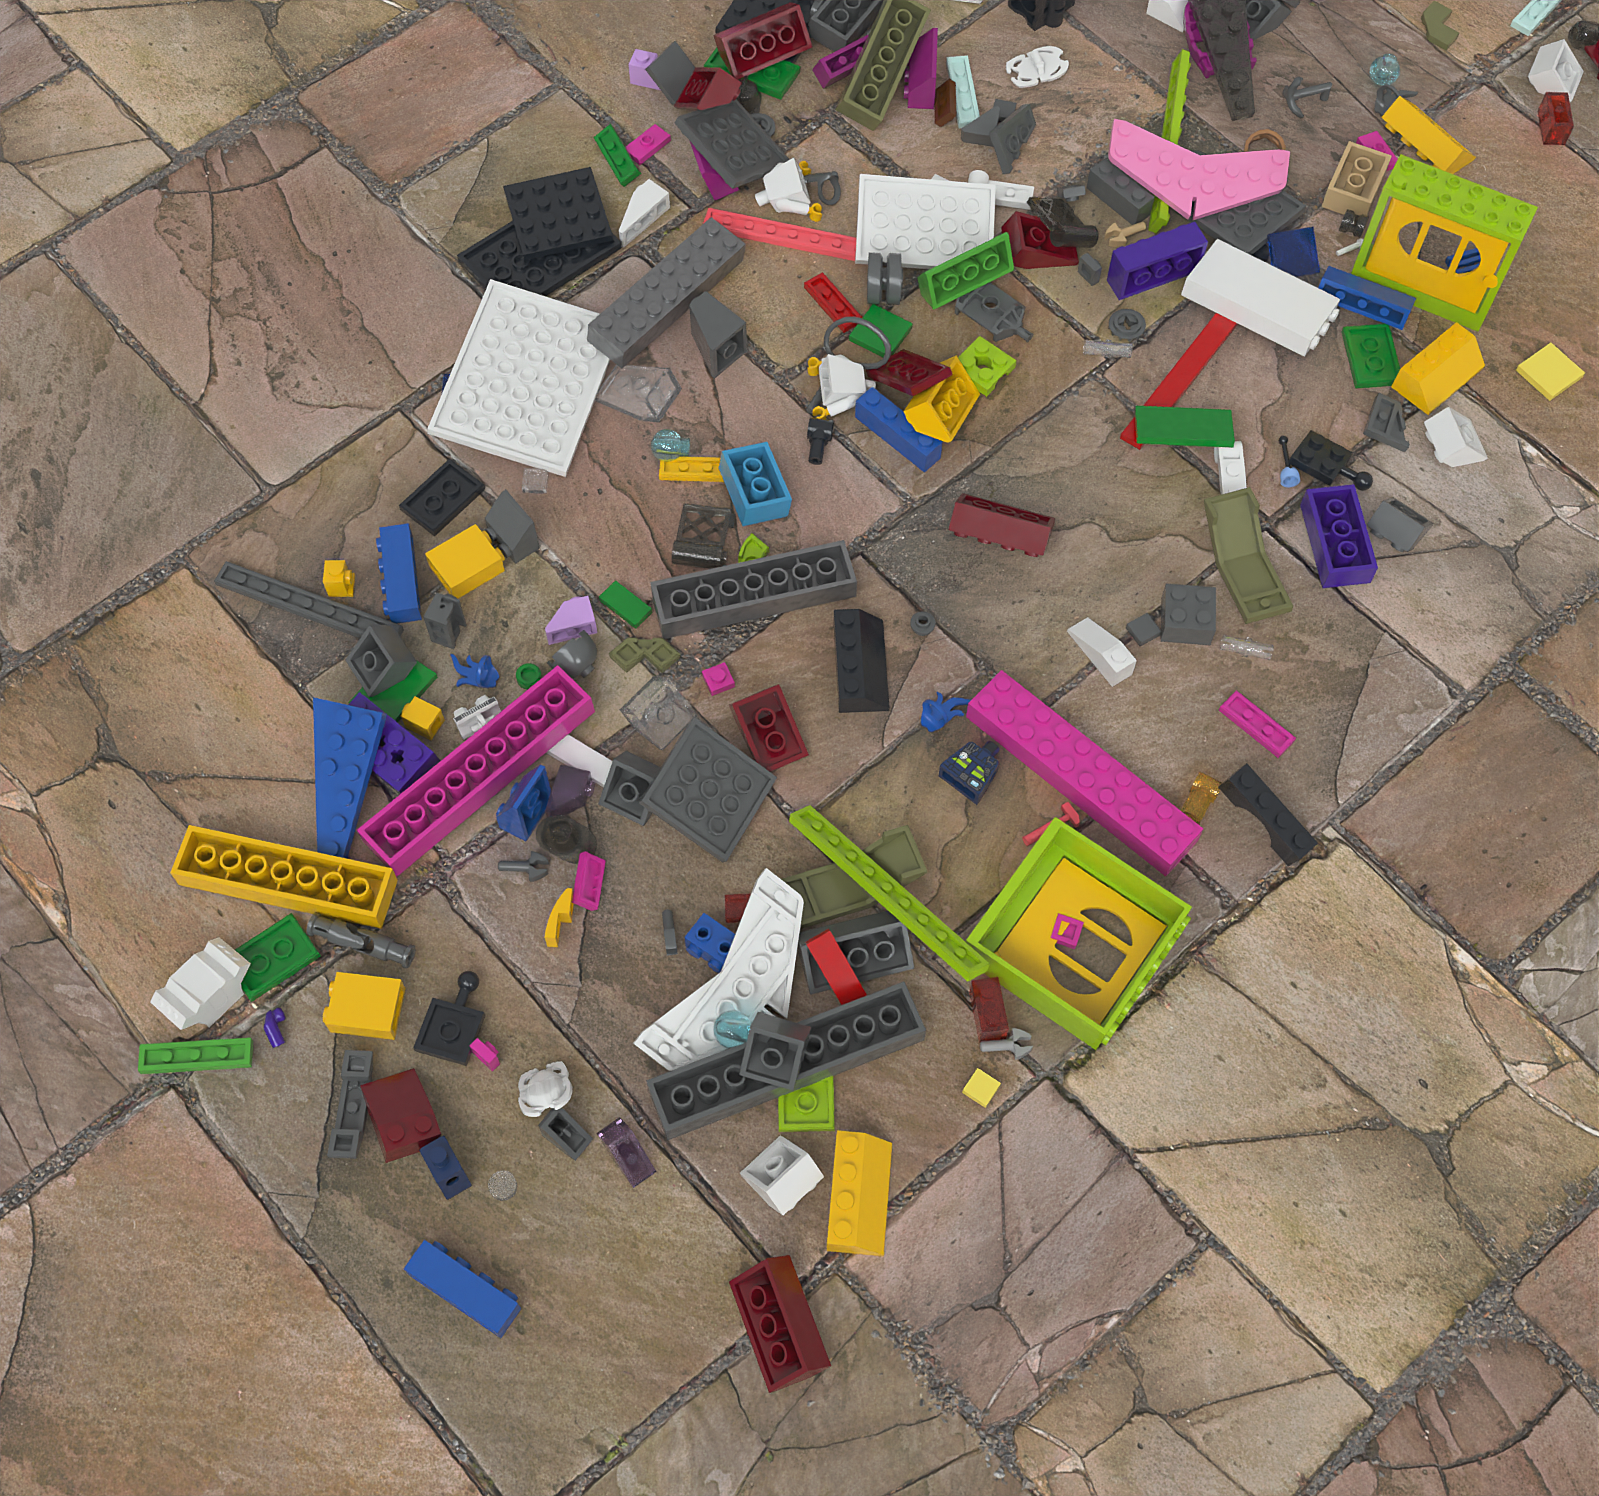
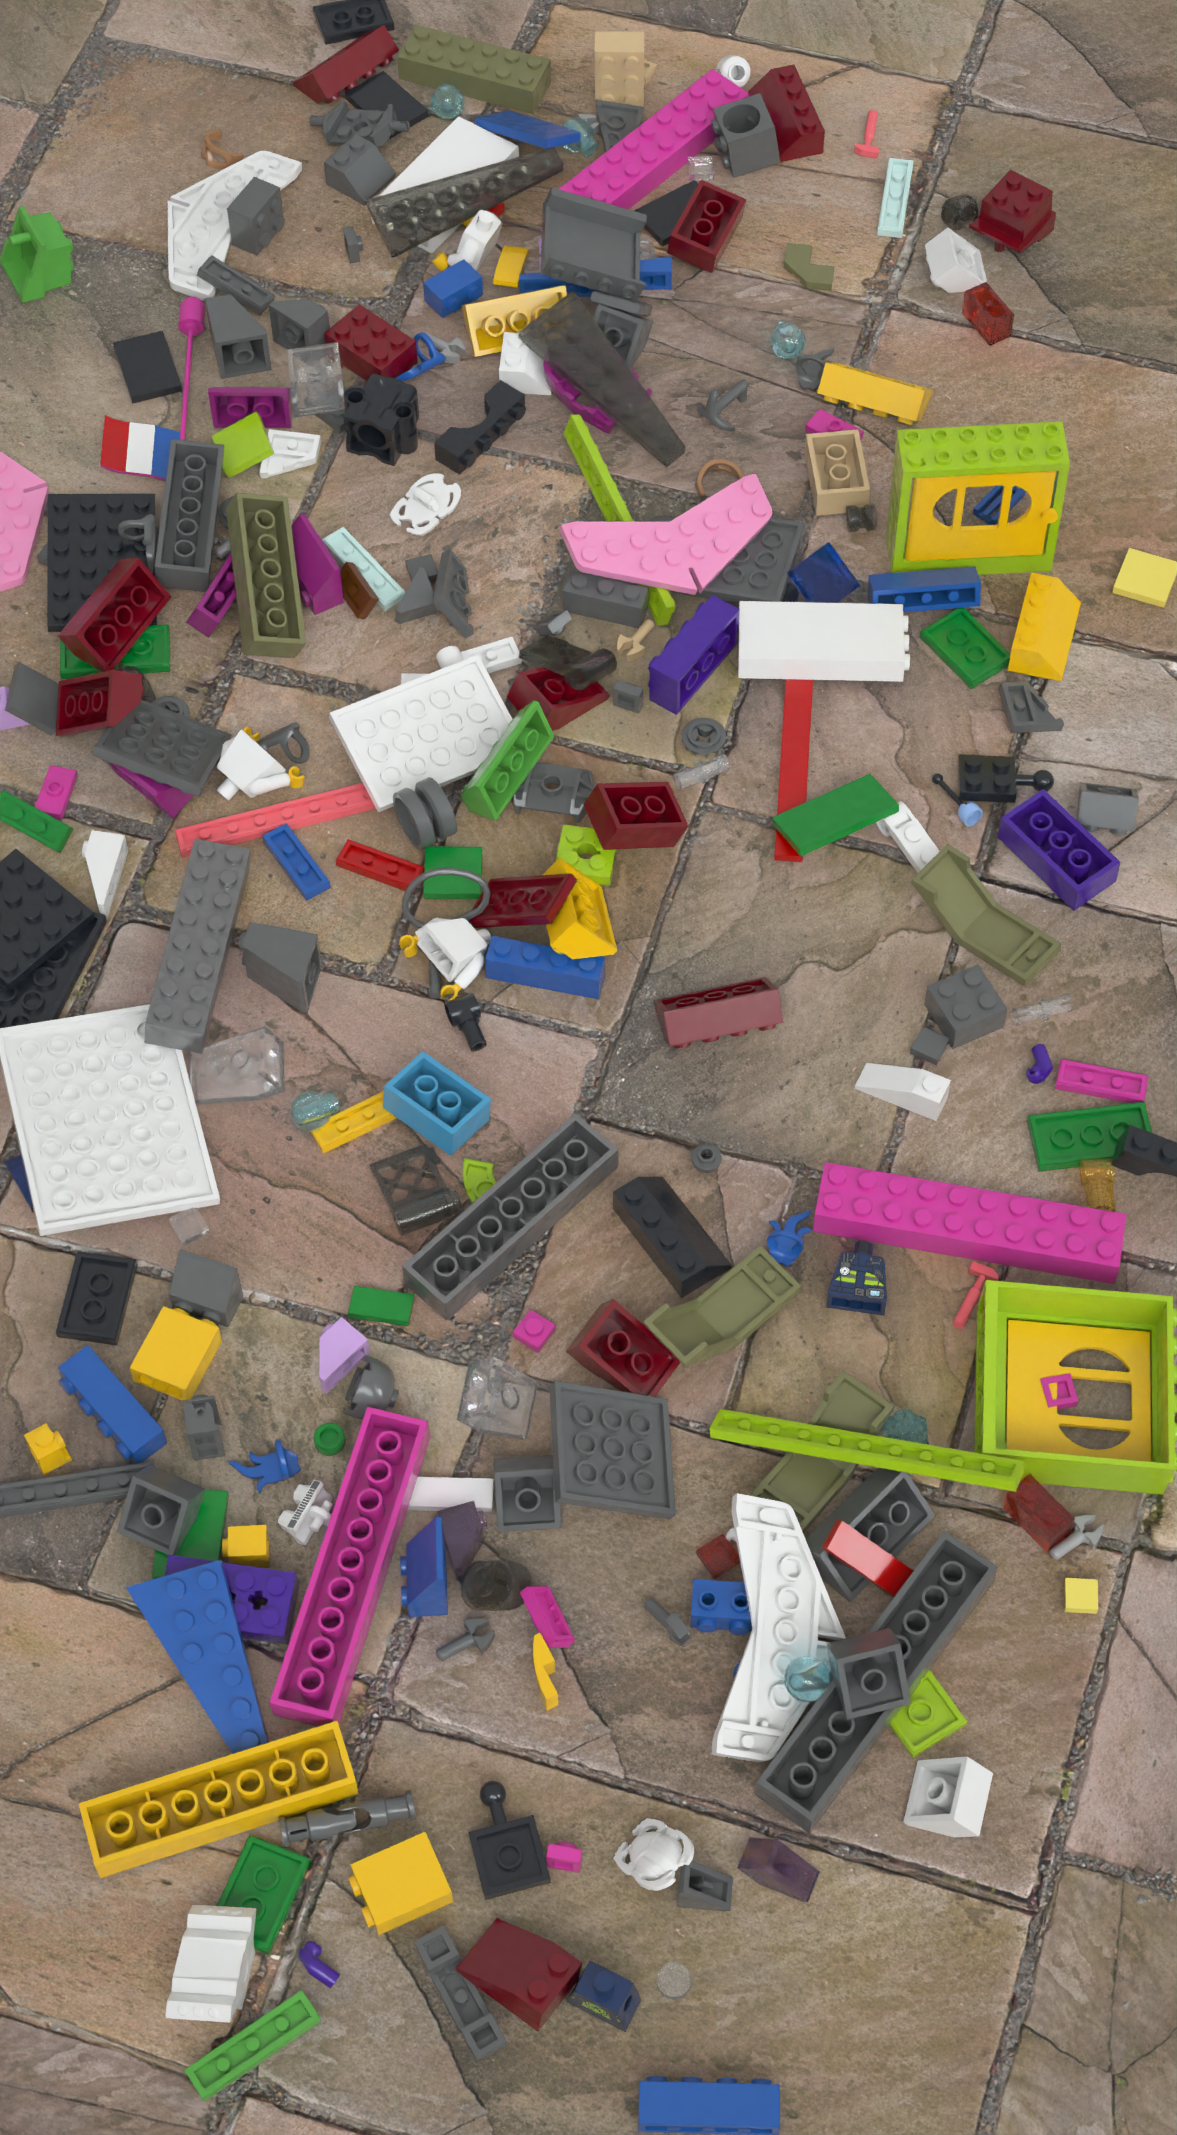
camera: 30 degrees left, 5 degrees down
(634, 650) = (447, 1337): olive tile -> none
(776, 270) = (296, 862): none -> blue plate
(779, 1323) = (1046, 1944): dark red slope -> none
(857, 739) = (726, 1310): none -> olive windscreen
(859, 1194) = (1034, 1771): yellow slope -> none
(931, 894) = (906, 1426): none -> clear light blue brick
(1033, 353) = (635, 815): none -> dark red brick
(1089, 37) = (462, 446): none -> black arch
(1216, 754) = (1079, 1134): none -> green tile
(1219, 689) = (1042, 1067): none -> dark purple arm
(1358, 244) = (879, 536): white piece -> none
(1454, 438) = (1102, 693): white slope -> none

